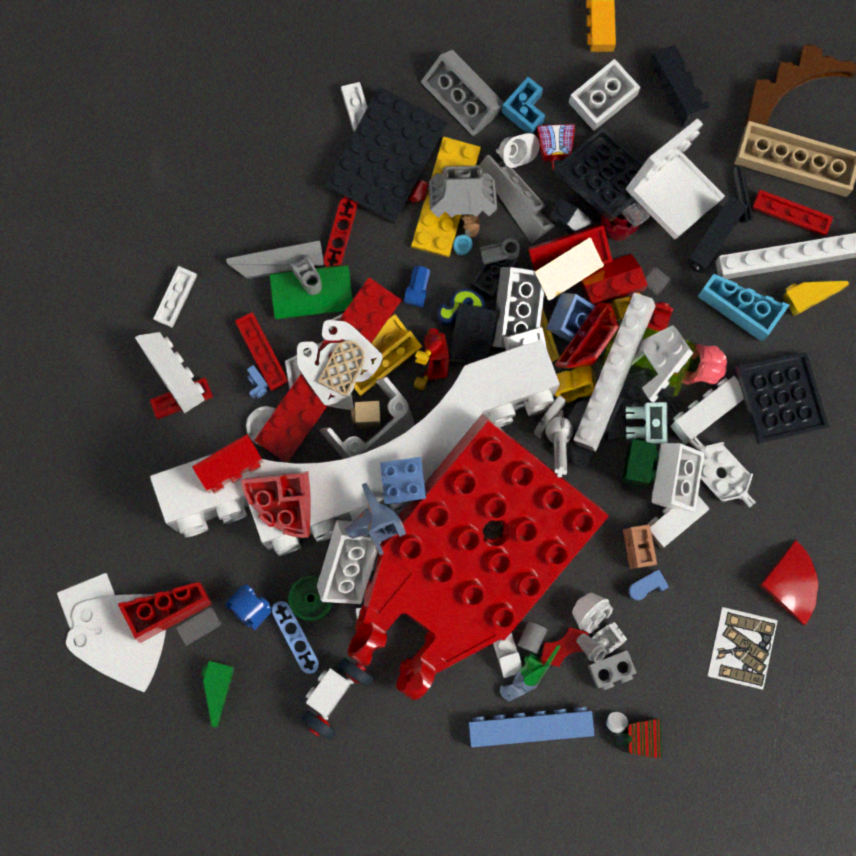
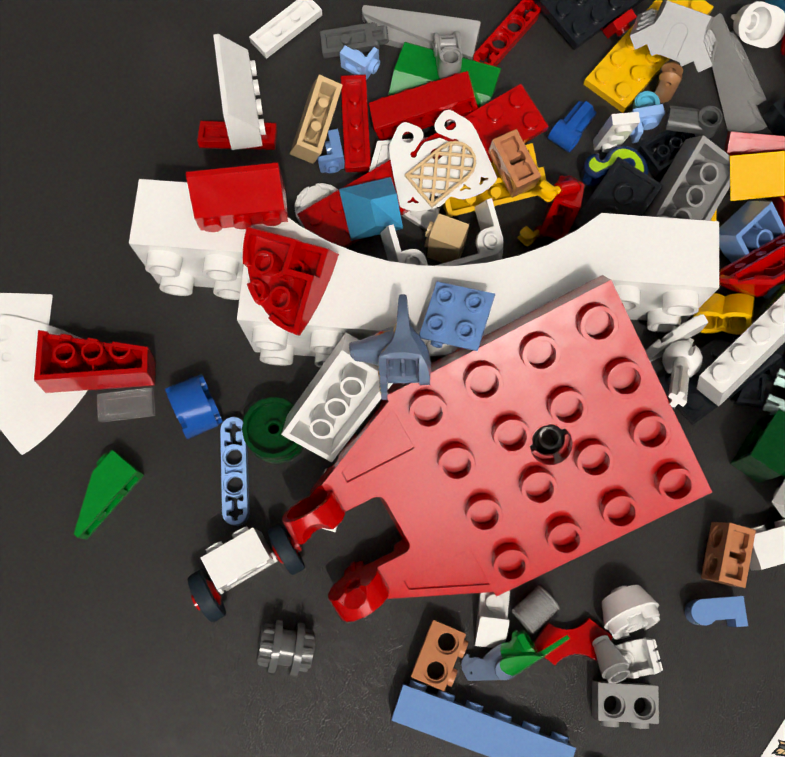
camera: 30 degrees right, 5 degrees down
(230, 287) = (359, 37): none -> dark grey hinge
(233, 363) = (316, 119): none -> tan brick
(241, 305) = (357, 63): none -> light blue bracket
(305, 415) = (371, 208): none -> dark azure slope
(306, 322) = (423, 104): none -> red brick
(384, 734) = (285, 647): none -> dark grey piece
(390, 342) = (514, 163): none -> nougat brick
(450, 286) = (616, 131): none -> white plate
(467, 258) = (649, 119): none -> light blue bracket
(478, 694) = (431, 652): none -> nougat brick

